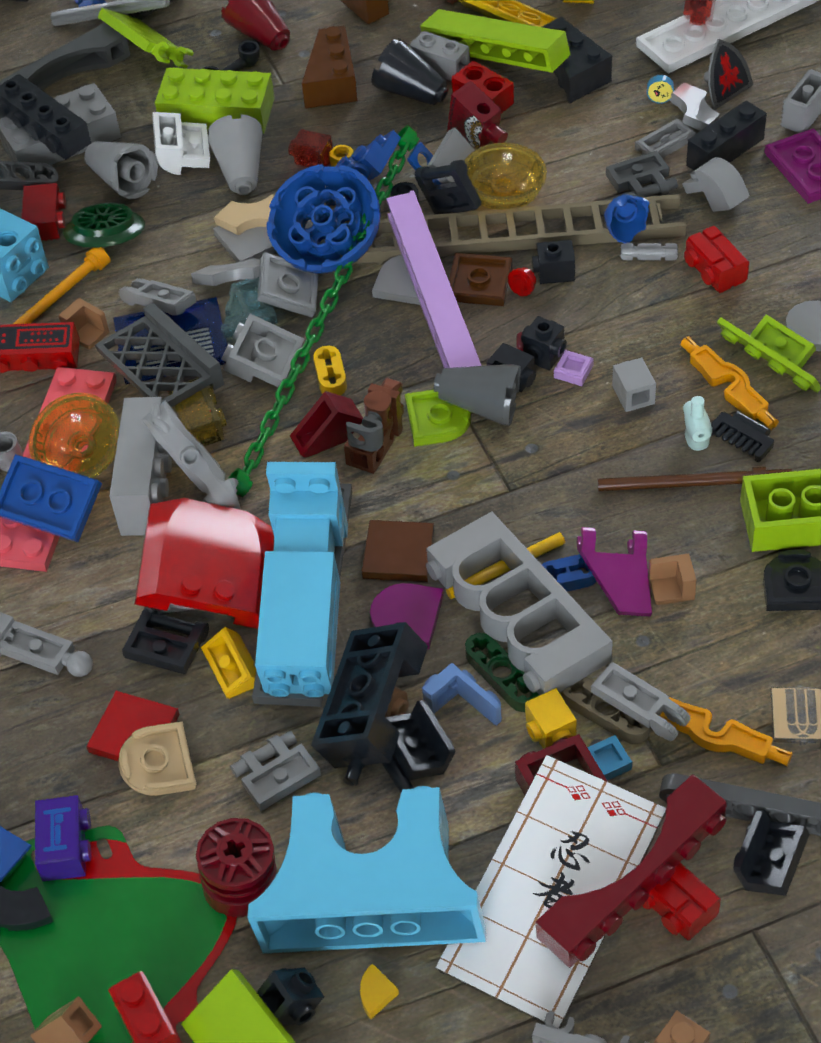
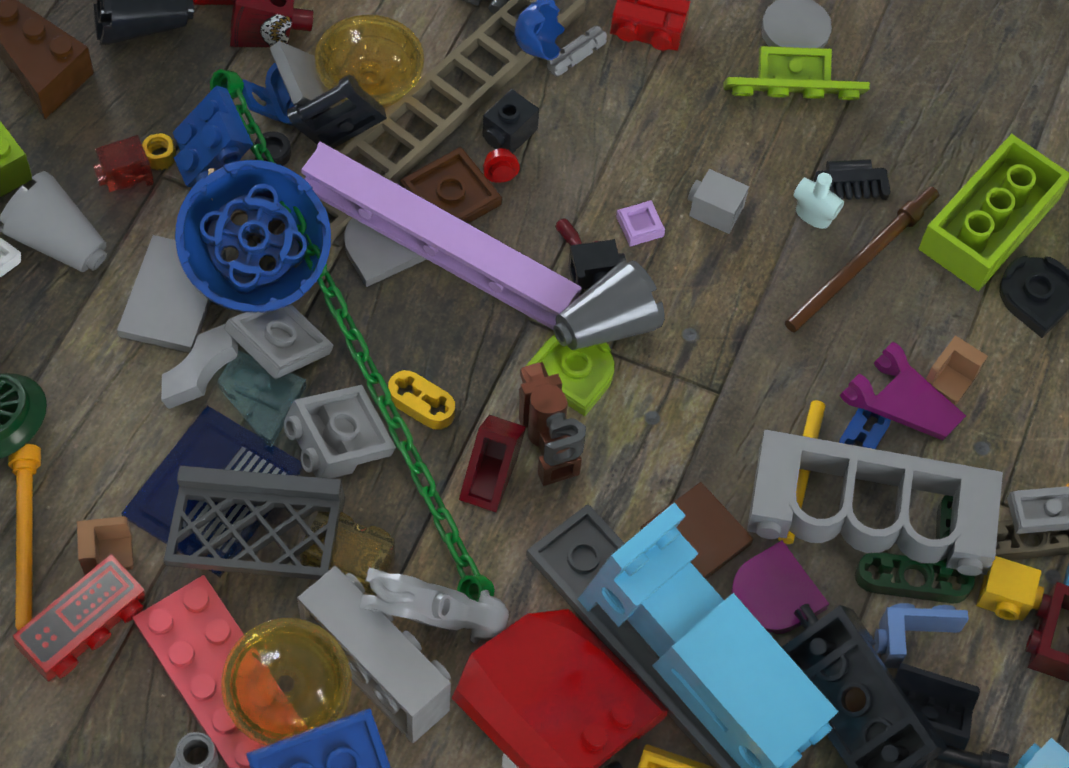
camera: 55 degrees left, 10 degrees up
(164, 296) = (155, 453): light grey hinge -> none
(243, 216) = (139, 294): tan tile -> none
(544, 341) = (597, 215): black brick -> none
(738, 393) = (806, 141): light orange piece -> none

